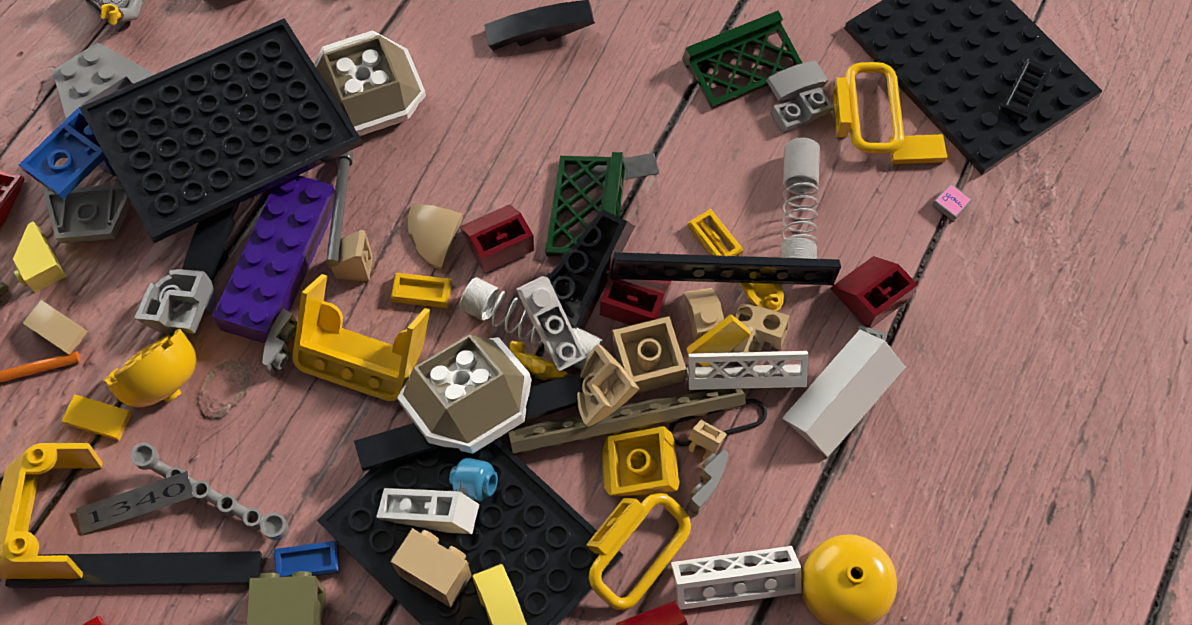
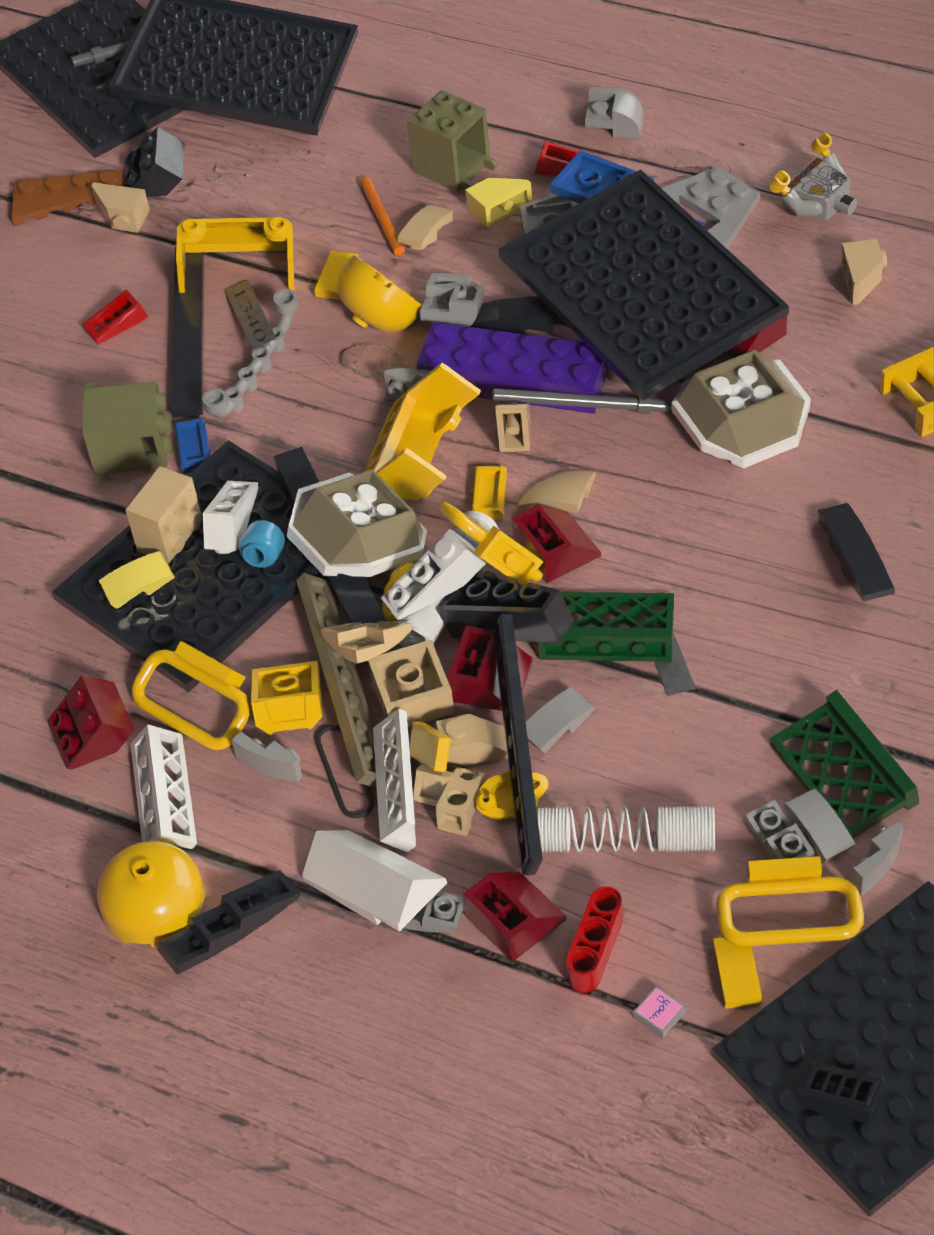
camera: 95 degrees right, 15 degrees down
(540, 254) = (497, 547): none -> yellow bar
(678, 240) = (557, 716): none -> light grey slope
(707, 437) = (317, 749): tan tile -> none
(736, 250) = (584, 757): yellow tile -> none
(824, 43) = (883, 852): none -> light grey slope
(875, 515) = (228, 923): none -> black slope
(910, 235) = (594, 954): none -> red beam

